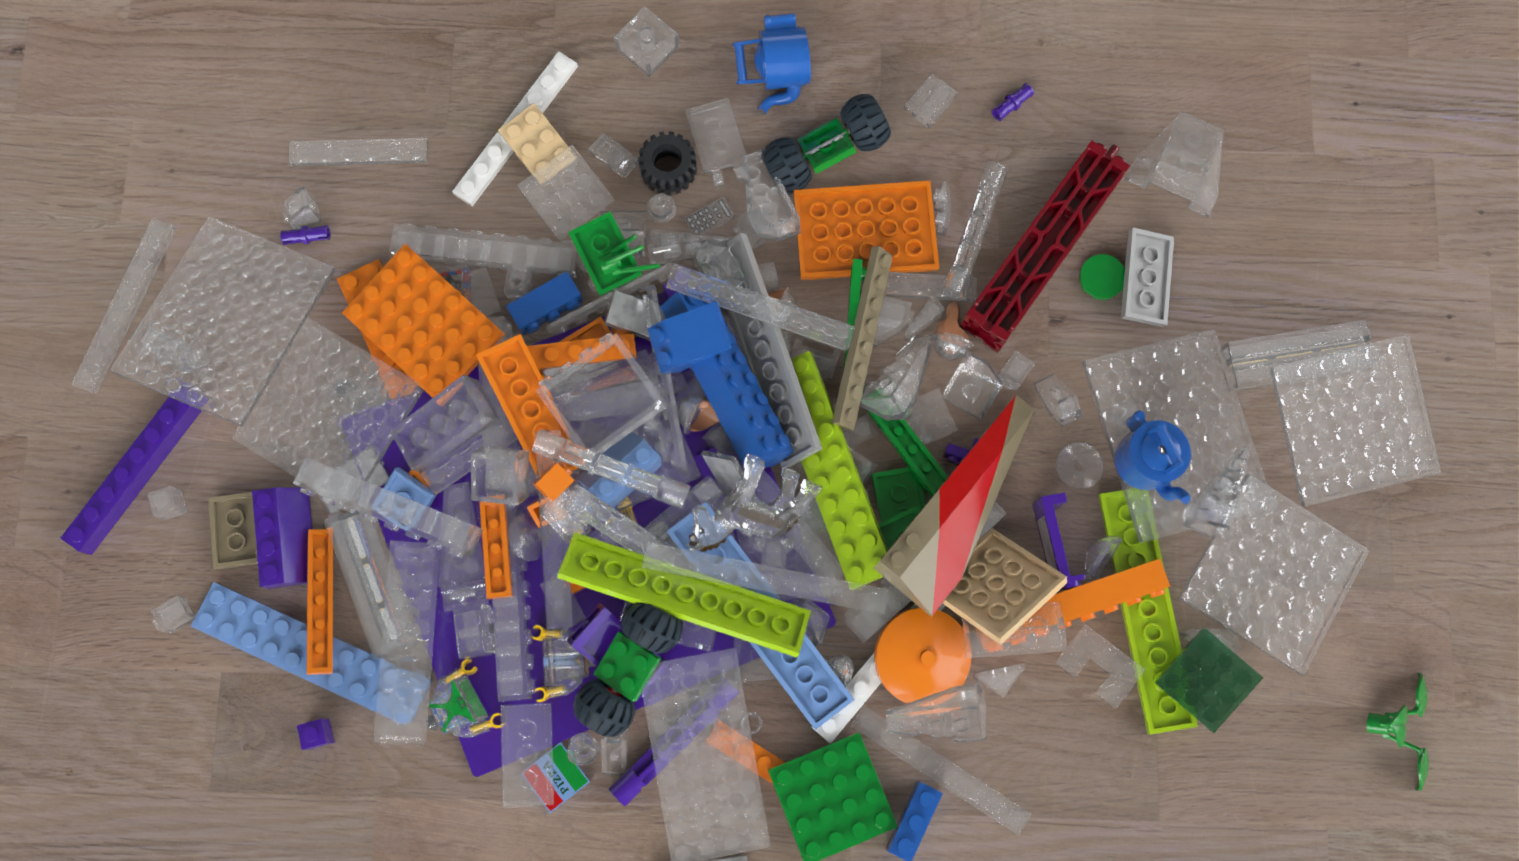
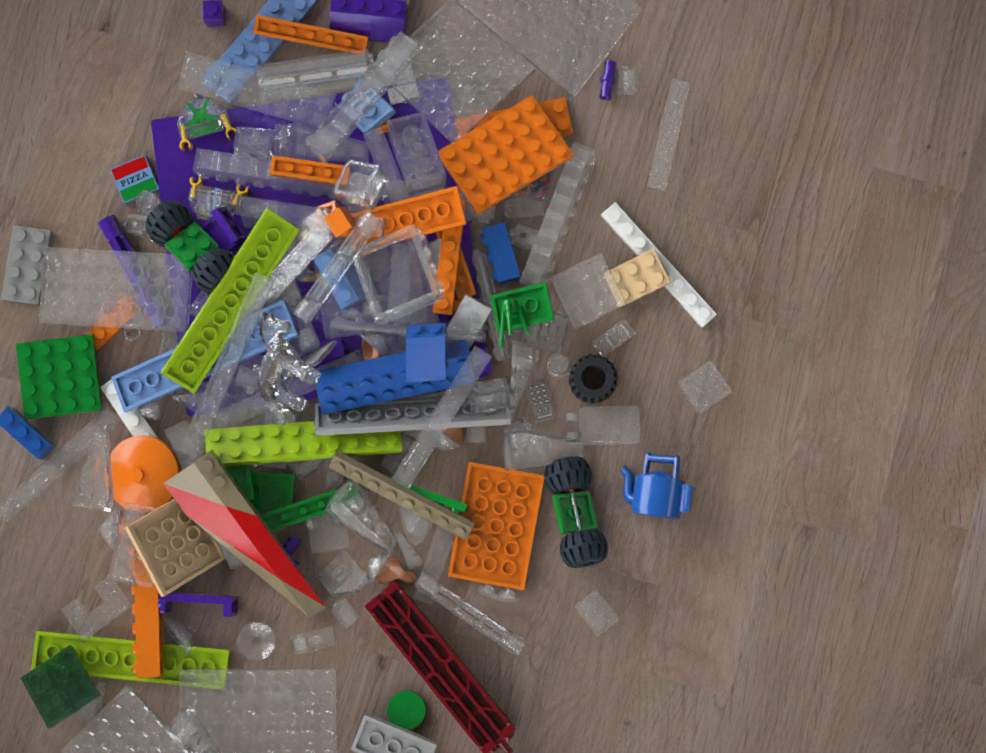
camera: 110 degrees right, 5 degrees up
(521, 537) = (314, 191): clear dish -> none
(526, 755) = (154, 161): clear tile -> none
(1012, 102) = (576, 680): dark purple pin -> none
(1142, 463) = (244, 683): blue piece -> none

